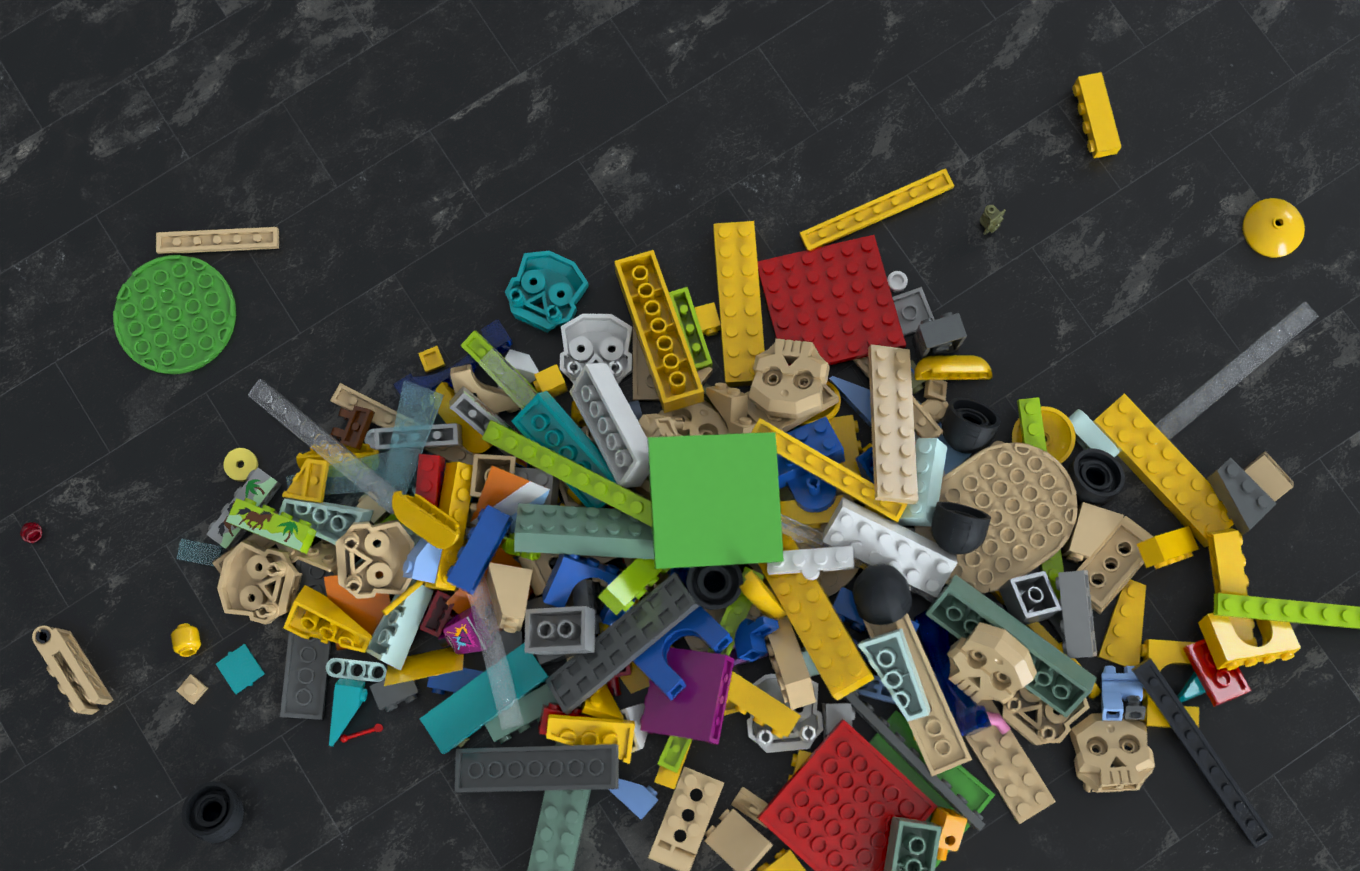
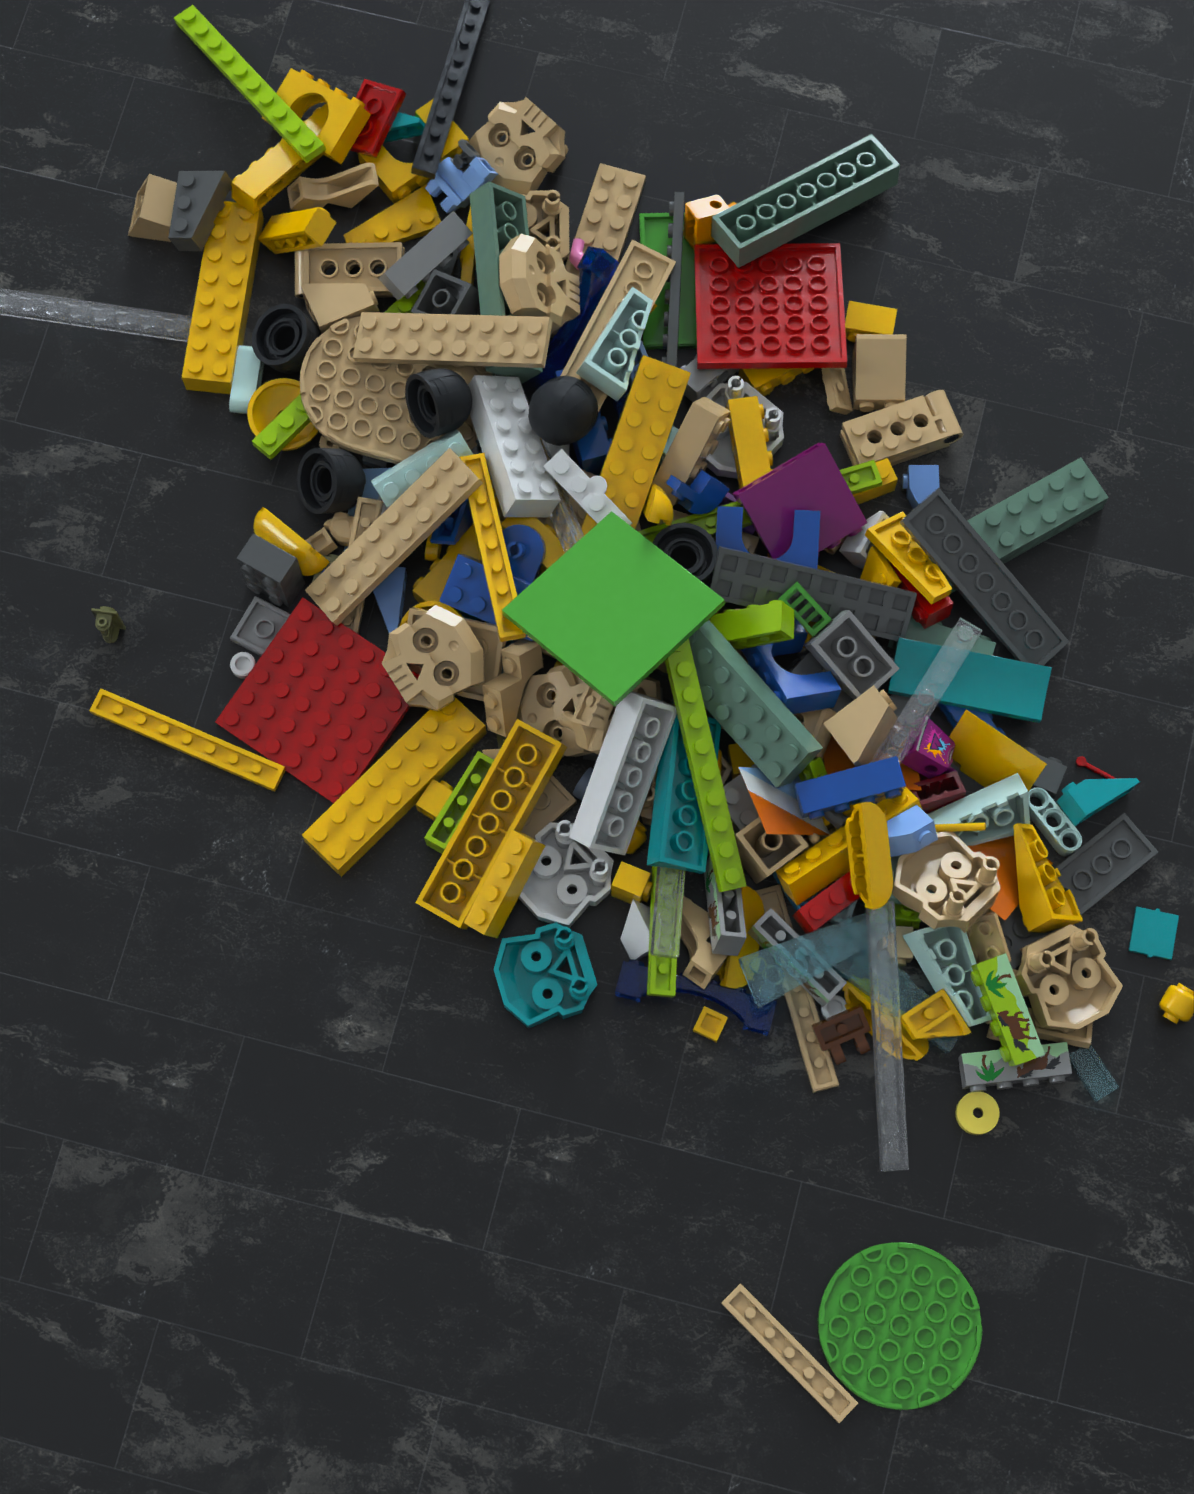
camera: 135 degrees left, 5 degrees down
(599, 622) = (820, 624): none -> bright green slope
(616, 307) = (504, 884): none -> yellow brick
(992, 569) = (453, 339): none -> tan plate
(1180, 609) = (339, 189): none -> tan arch

